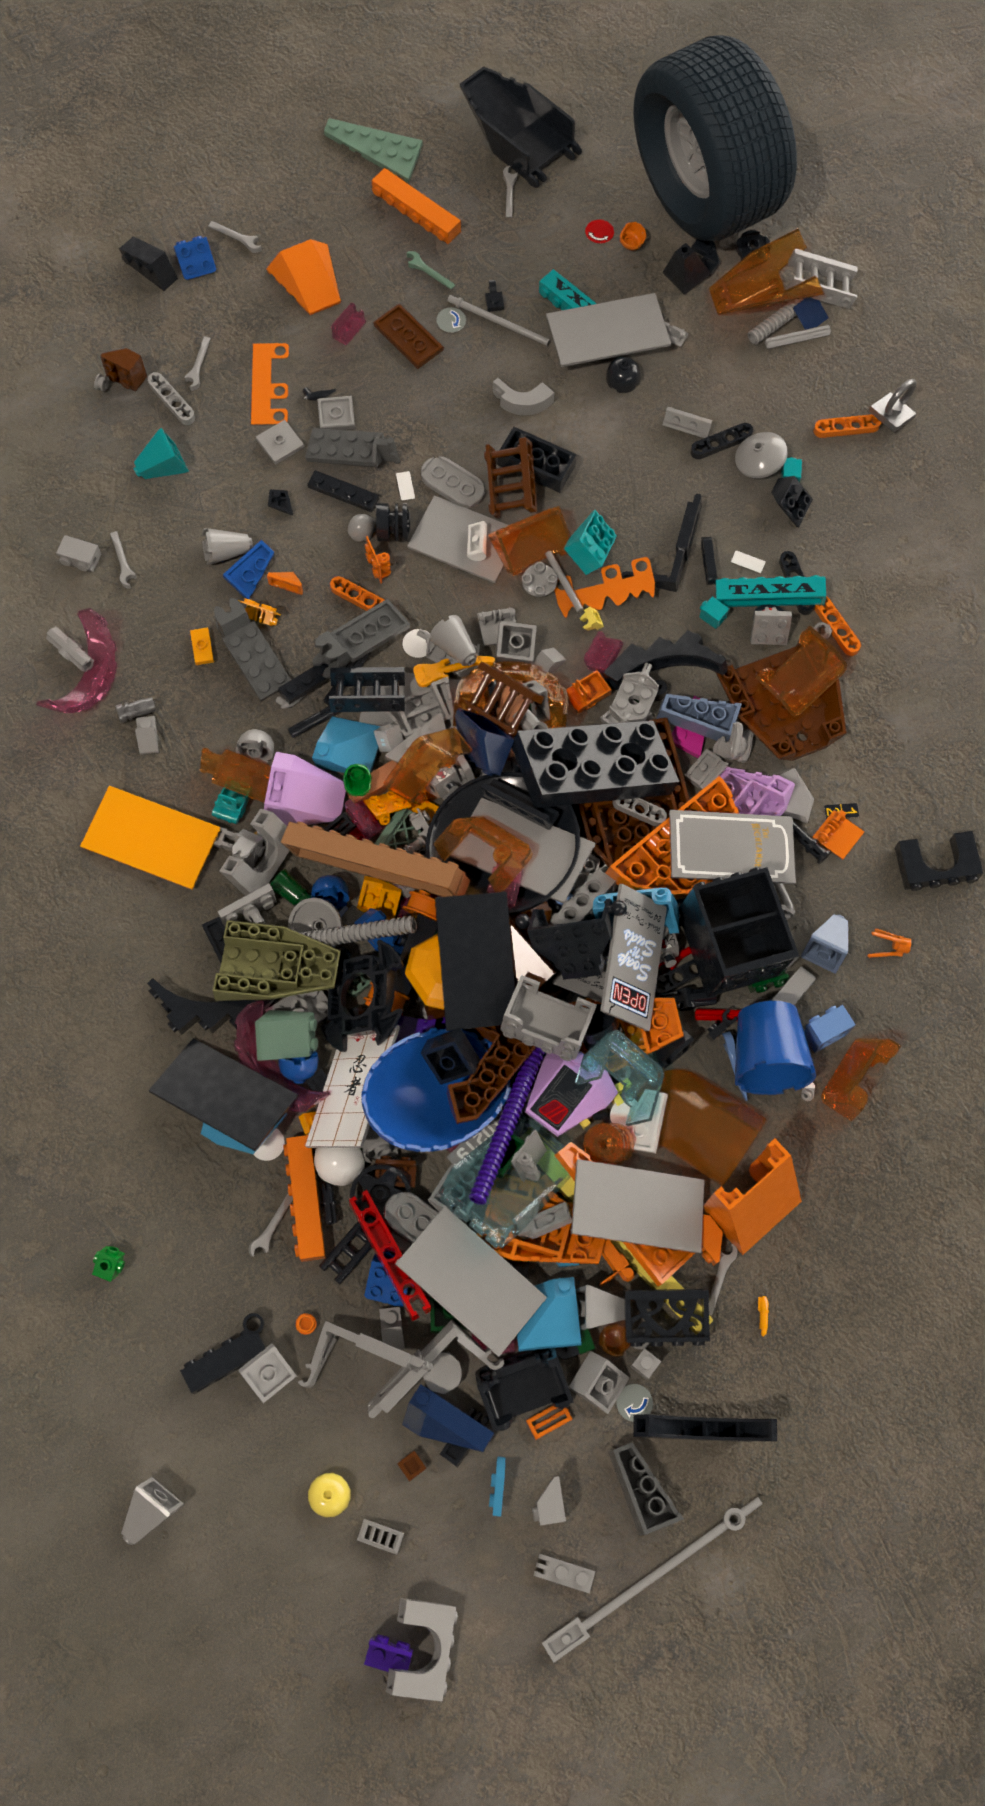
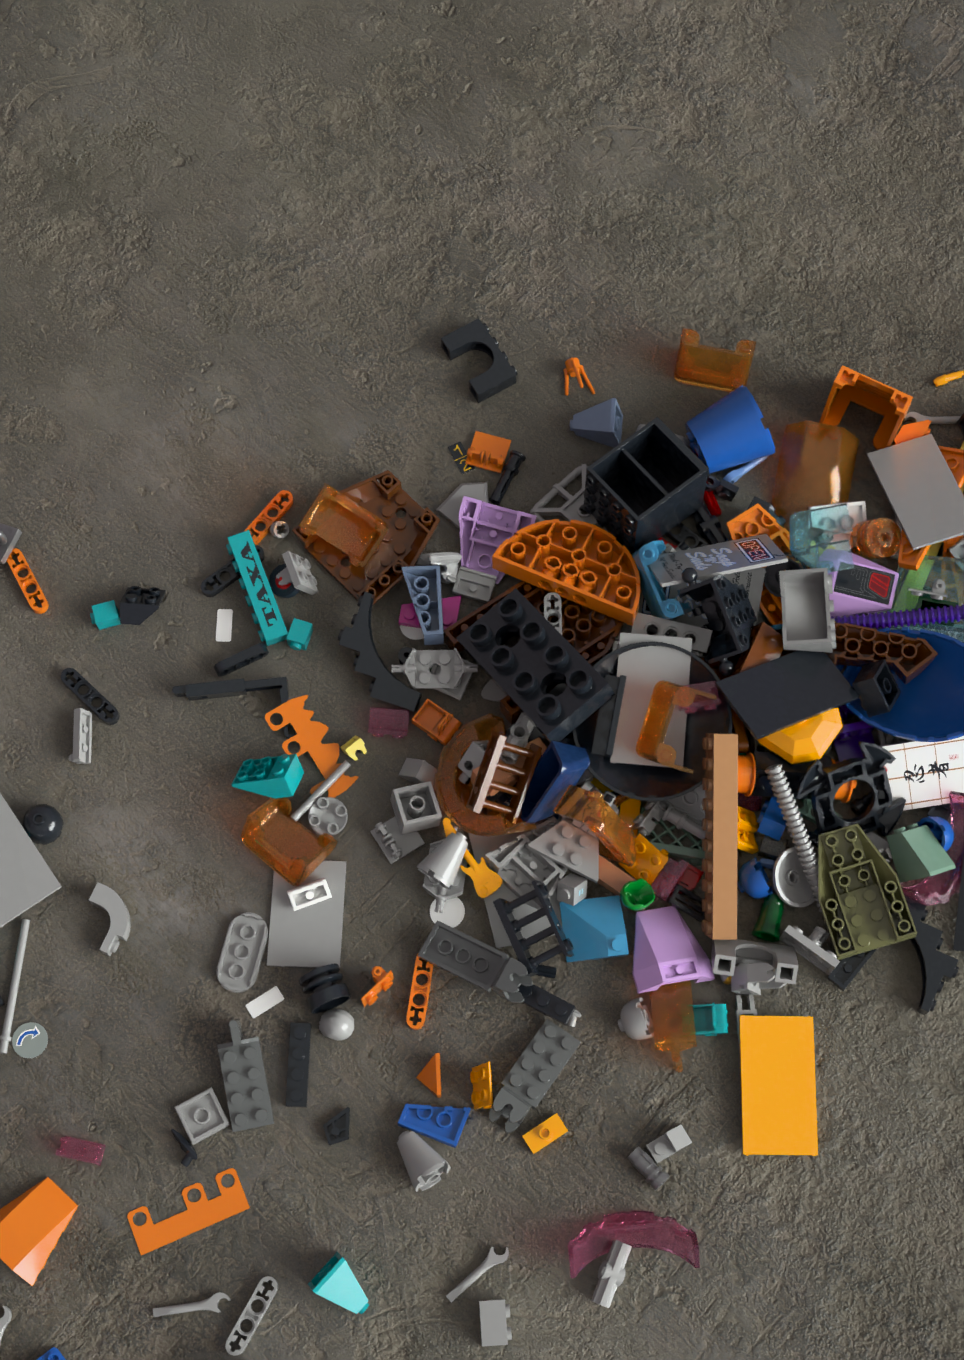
camera: 110 degrees left, 0 degrees up
(280, 442) = (262, 1162): light grey plate -> none
(311, 721) = (575, 975): black axle -> none
(408, 336) = (69, 1078): reddish brown tile -> none
(527, 483) = (211, 869): reddish brown fence -> none
(550, 462) = (187, 870): black brick -> none
(727, 843) = (559, 523): light grey piece -> none
(762, 461) = (110, 645): light grey dish -> none
(828, 1028) = (684, 397): medium blue brick -> none

